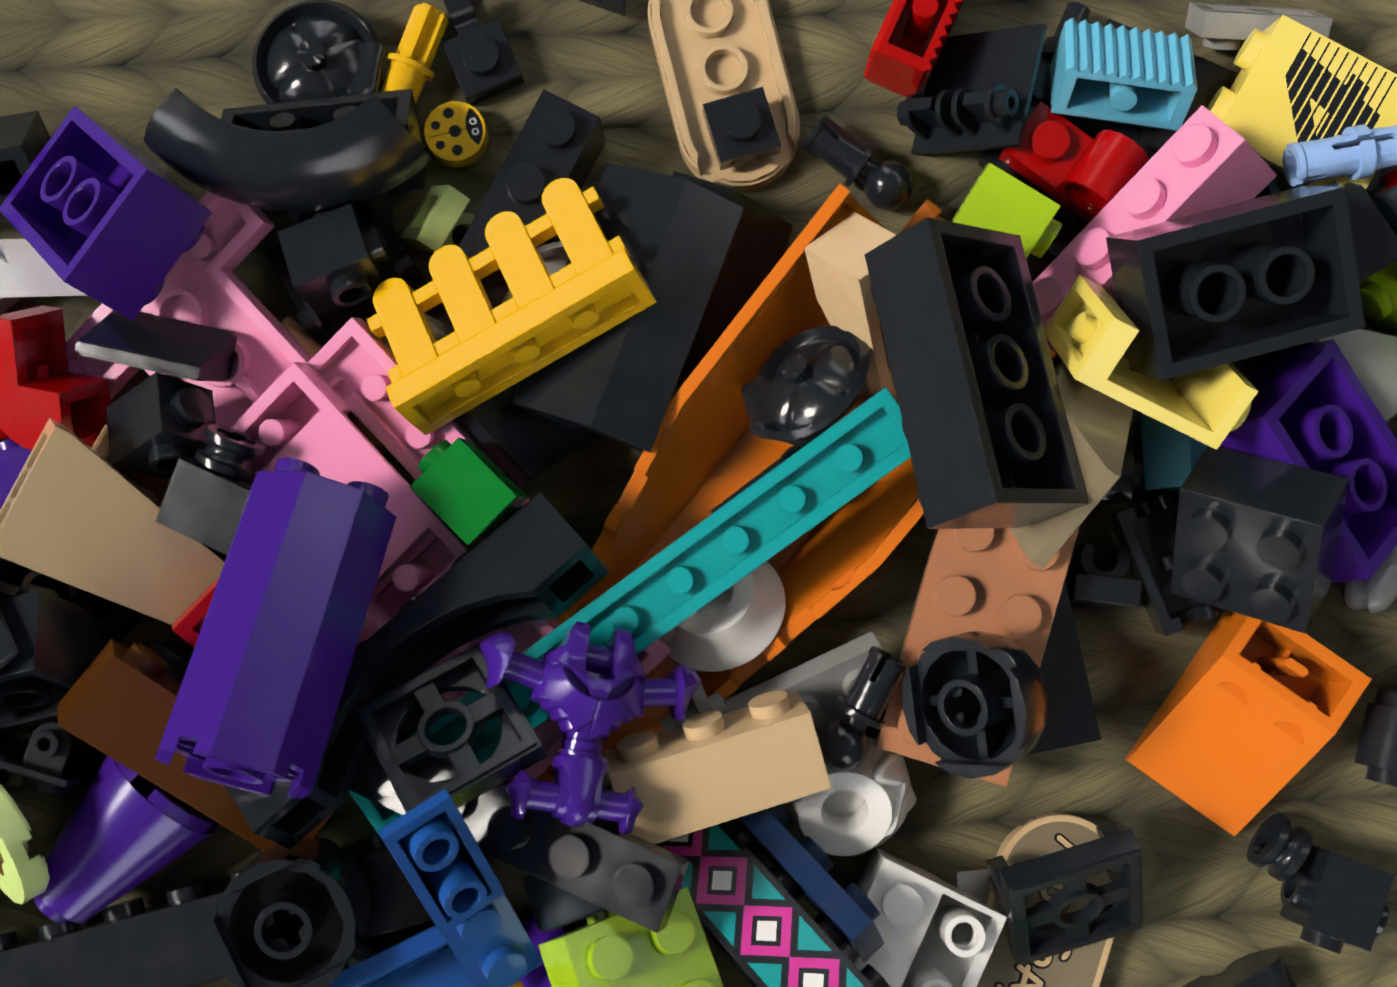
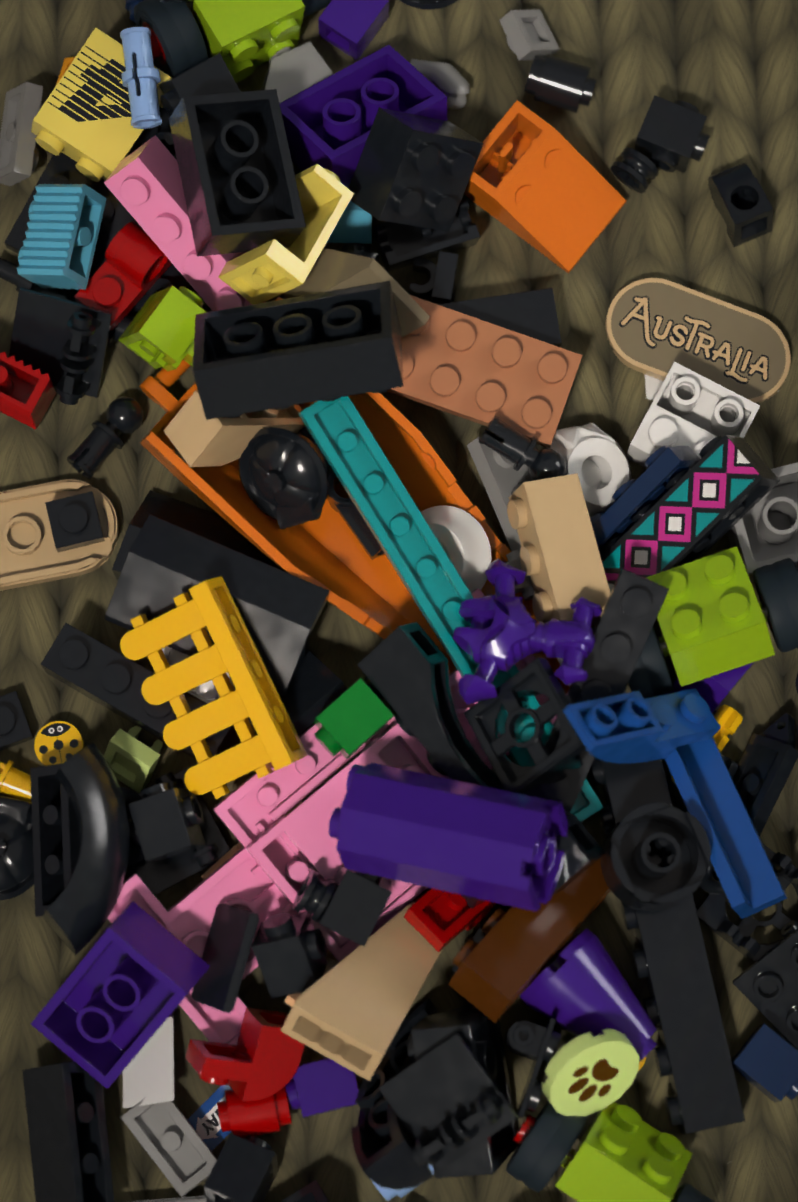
camera: 90 degrees left, 5 degrees down
(975, 703) = (521, 368): black cylinder -> none
(1110, 913) = (676, 291): black piece -> none

